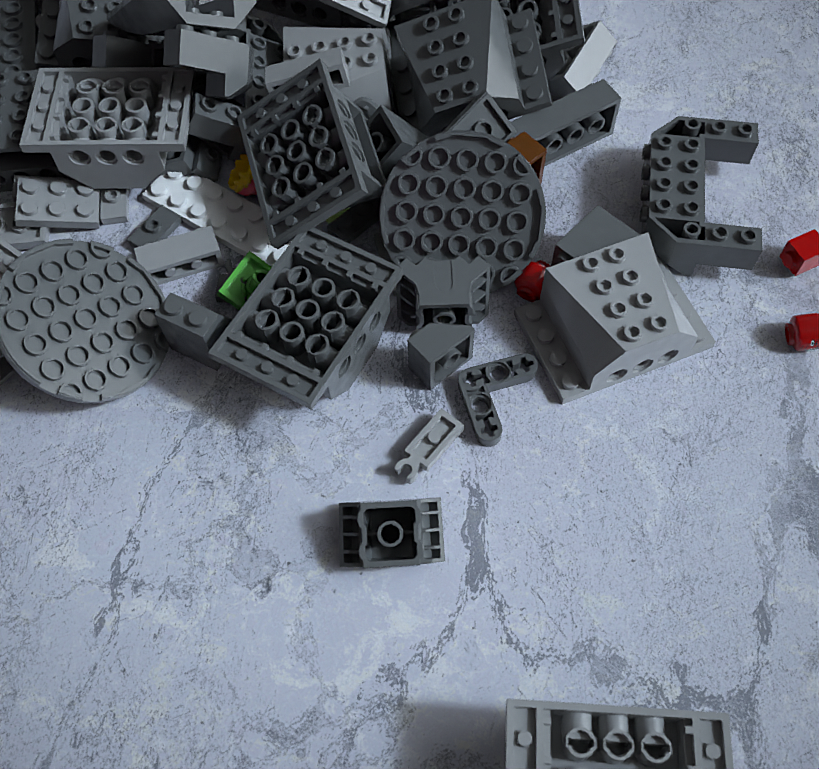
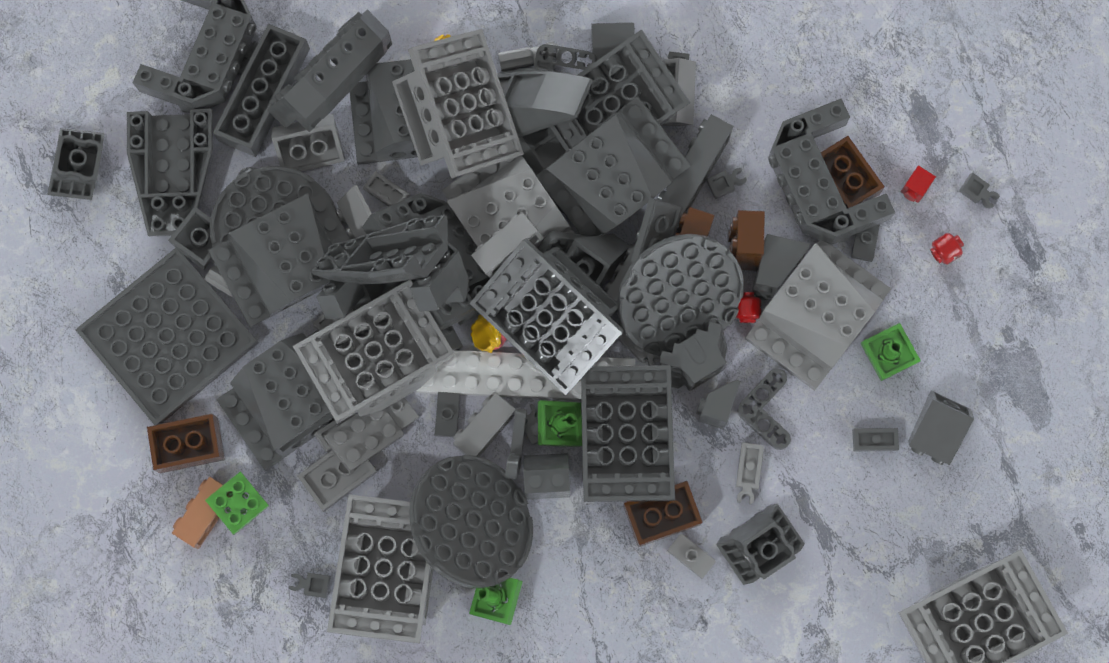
camera: 30 degrees left, 15 degrees up
(54, 420) = (487, 598): none -> bright green plate
(198, 283) = (514, 459): none -> dark grey beam
(295, 435) = (662, 519): none -> reddish brown brick
(303, 501) = (691, 556): none -> light grey plate
(571, 199) = (747, 238): none -> reddish brown brick
(581, 162) = (723, 184): none -> dark grey plate
(604, 490) = (875, 439): none -> dark grey plate
(677, 405) = (897, 348): none -> bright green plate
(694, 518) = (940, 428): none -> dark grey slope
(711, 284) = (865, 244): none -> dark grey plate
(730, 197) = (851, 173): none -> reddish brown brick

